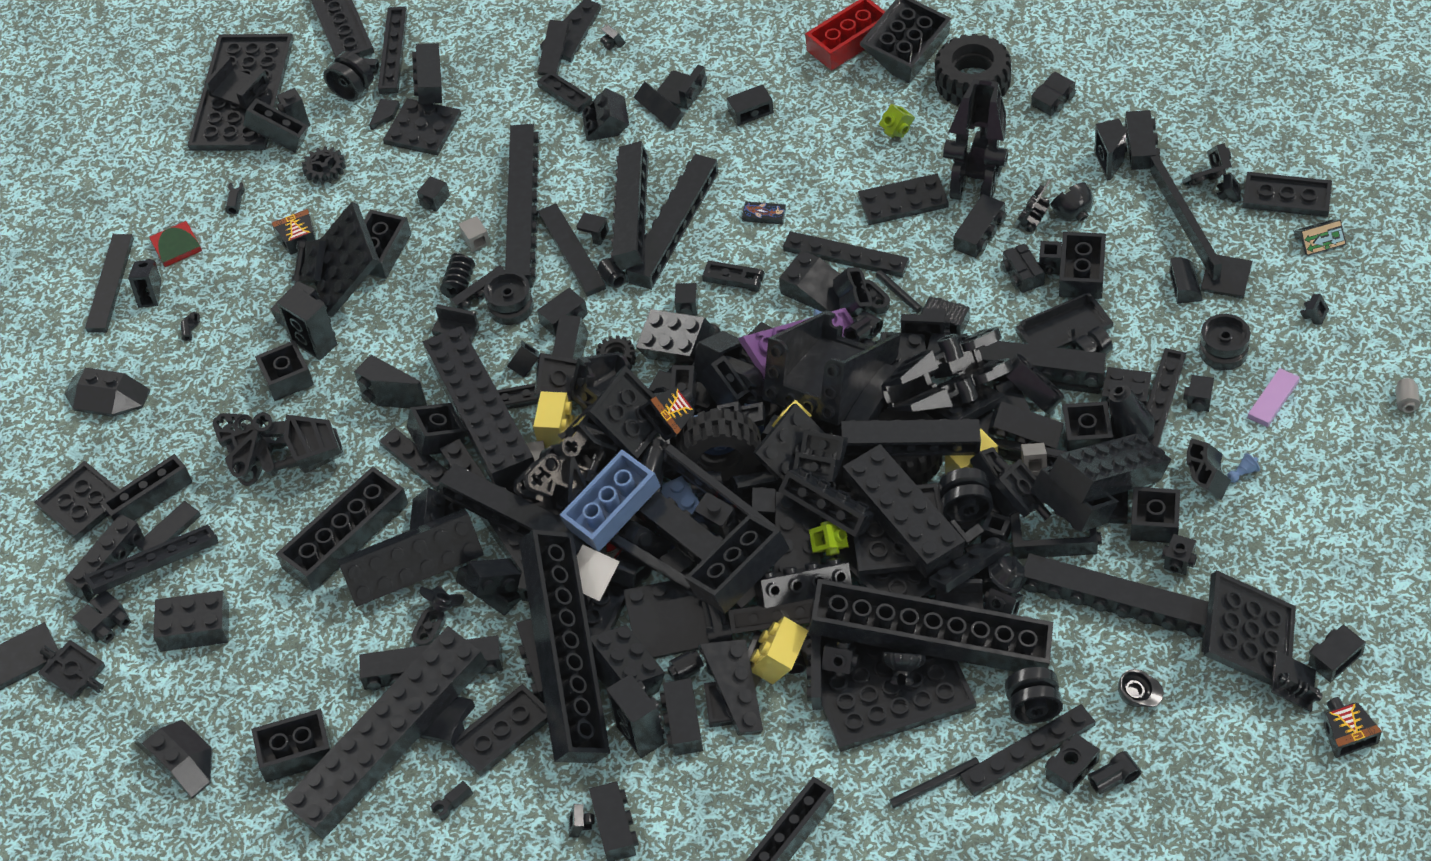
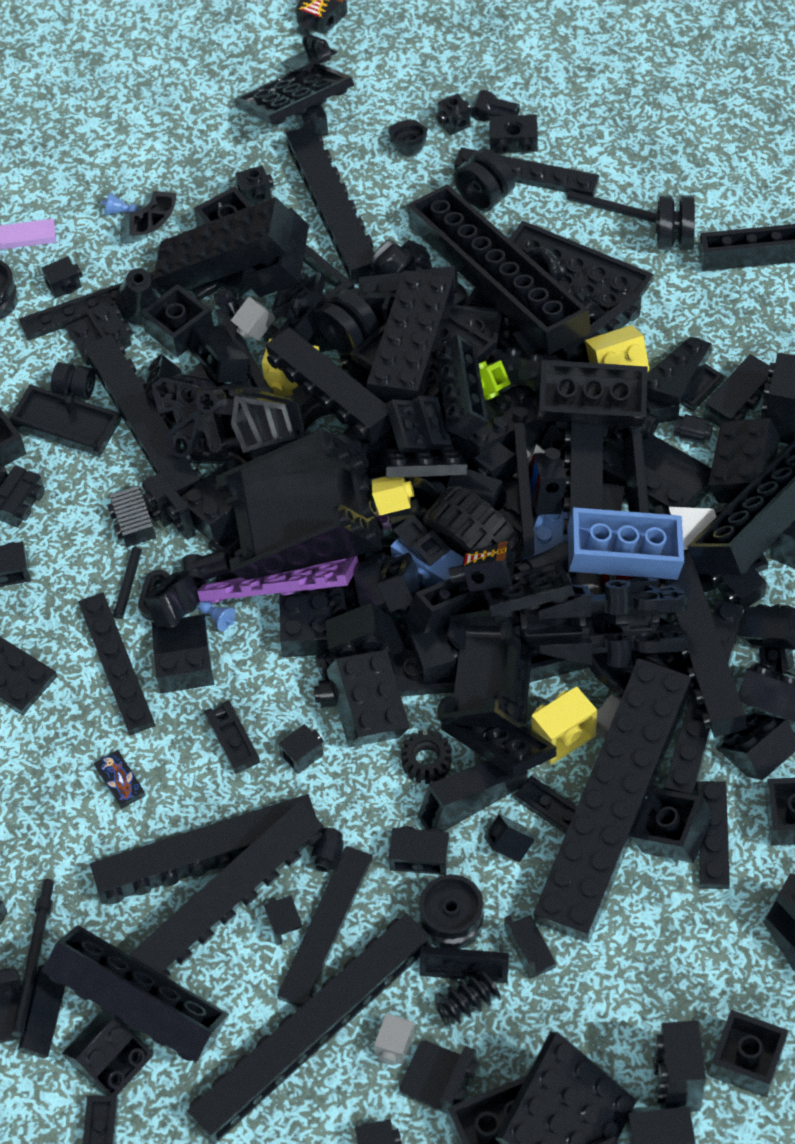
camera: 135 degrees left, 5 degrees up
(388, 385) = (671, 921): black slope -> none
(434, 241) = (439, 1075): none -> black bracket
(612, 127) = (135, 993): none -> black brick
(719, 137) = (42, 908): none -> black bar
(864, 788) = (675, 222): none -> black wheel
(1132, 735) = (454, 114): none -> black brick
(1336, 652) = (256, 51): black piece -> none

